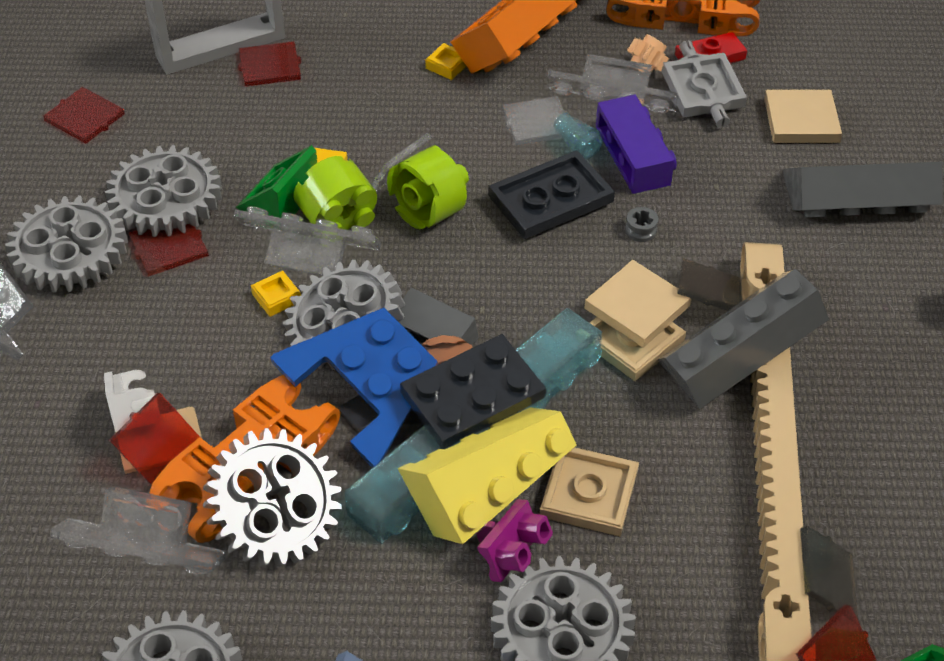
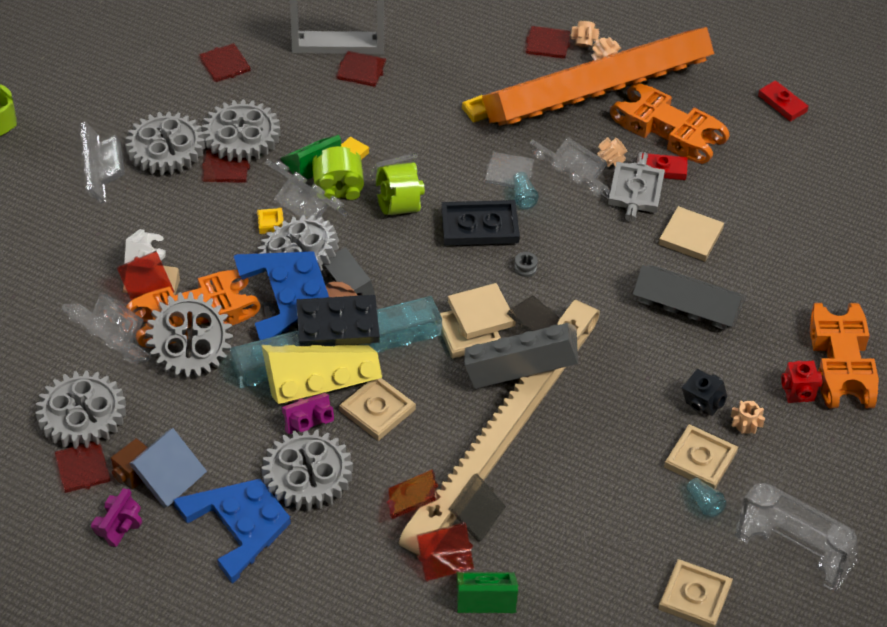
camera: 25 degrees right, 0 degrees up
(635, 144) = (559, 210): dark purple brick -> none
(735, 594) = (412, 494): none -> clear red piece

